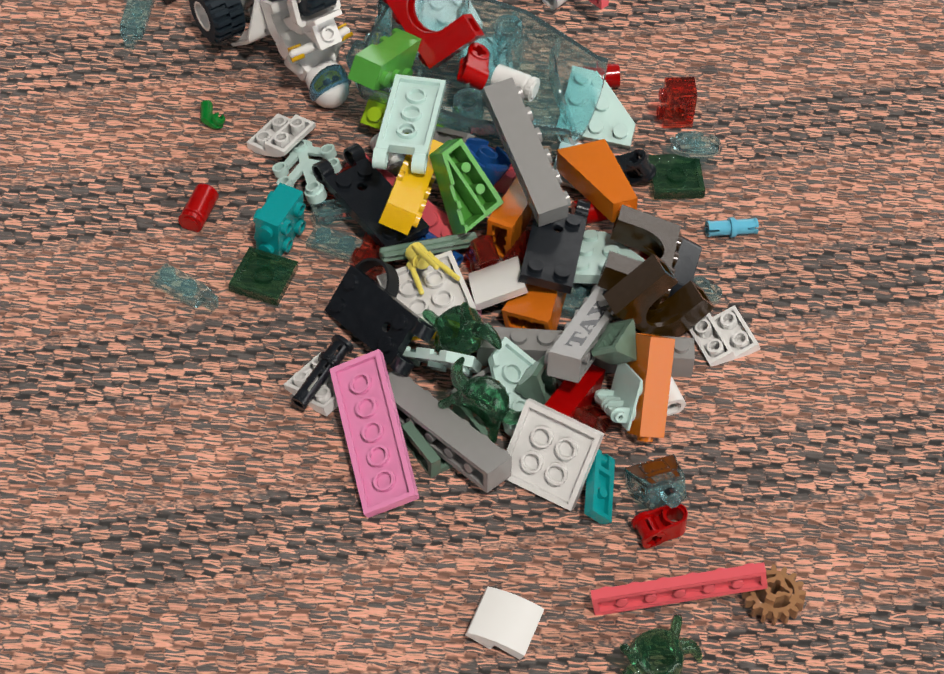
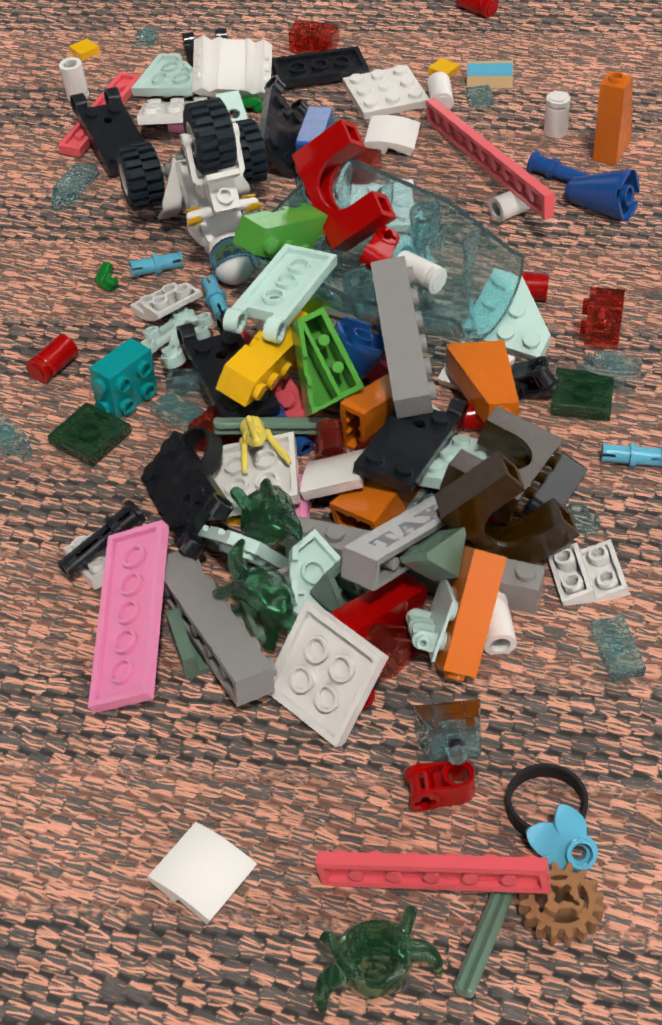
camera: 20 degrees right, 5 degrees down
(253, 96) = (156, 264): none -> medium azure pin
(323, 124) = (215, 297): none -> medium azure pin
(600, 489) = (378, 723): teal plate -> none
(725, 633) = (482, 944): none -> sand green axle
(746, 500) = (543, 770): none -> black tyre
(762, 547) = (559, 838): none -> medium azure plate
(763, 395) = (617, 648): none -> clear light blue plate

